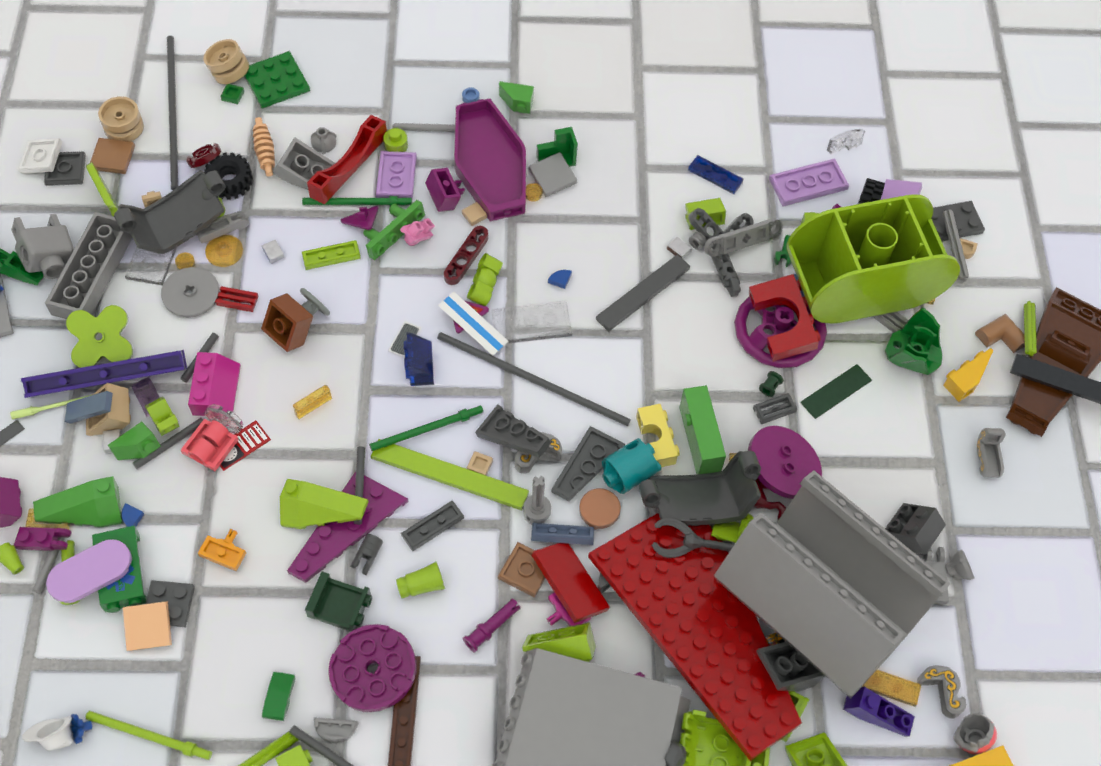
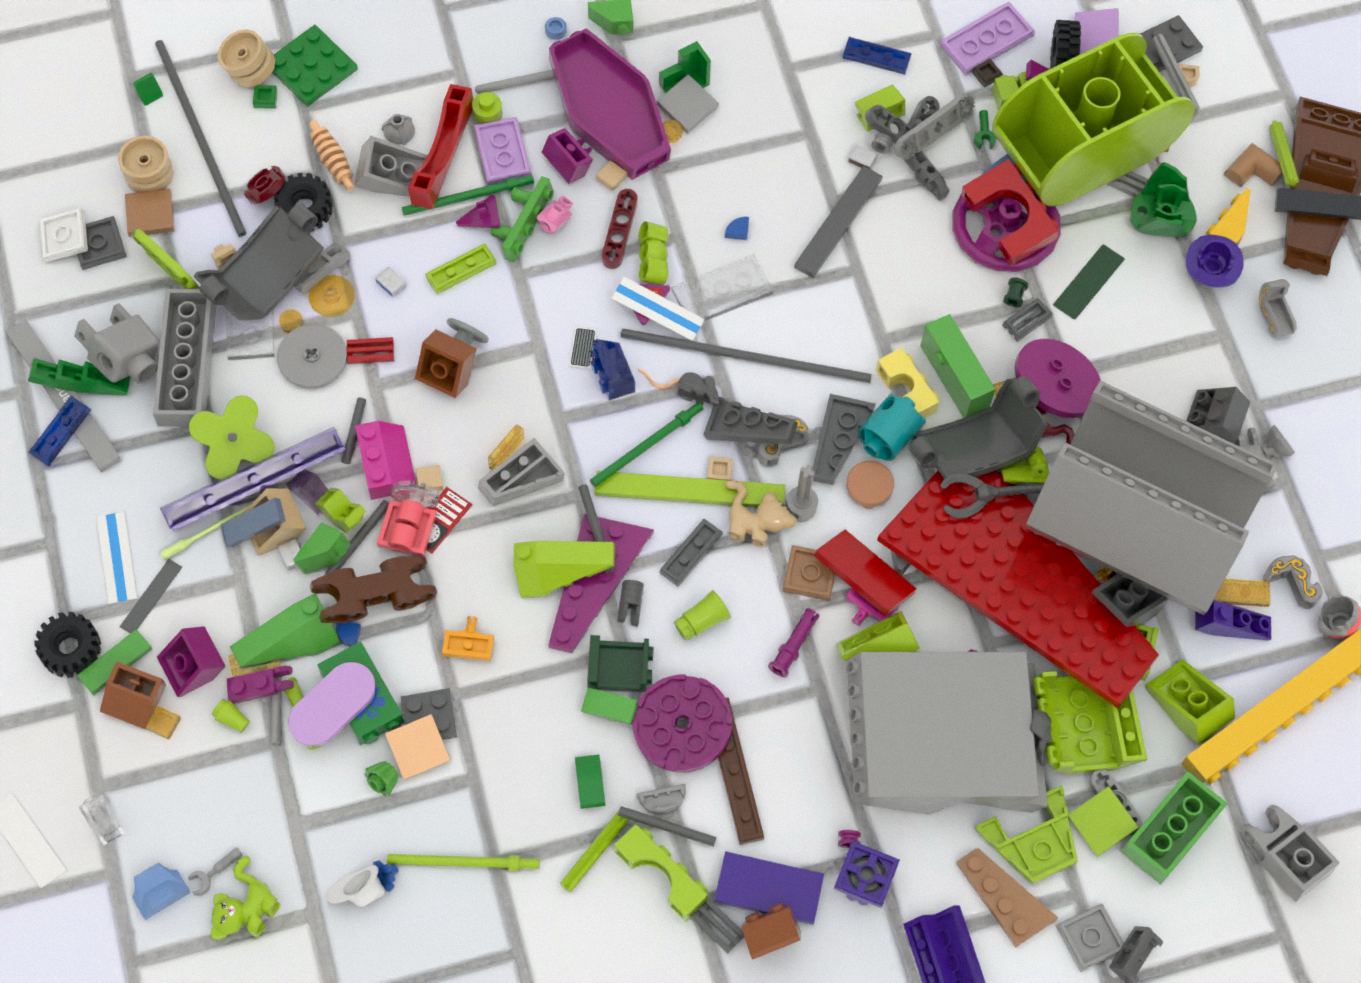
camera: 15 degrees left, 5 degrees up
(108, 644) = (381, 777): none -> bright green piece
(147, 67) = (147, 89): none -> green slope
(154, 485) = (357, 593): none -> reddish brown piece
(244, 409) = (430, 475): none -> tan tile
(314, 425) = (521, 474): none -> light grey wedge
(318, 636) = (609, 706): none -> bright green slope
(479, 392) = (691, 387): none -> dark grey animal
(507, 512) = (770, 516): none -> tan animal
(562, 533) = (838, 523): sand blue tile -> none
(800, 206) = (986, 72): none -> dark brown tile
(946, 400) = (1214, 261): none -> dark purple hat

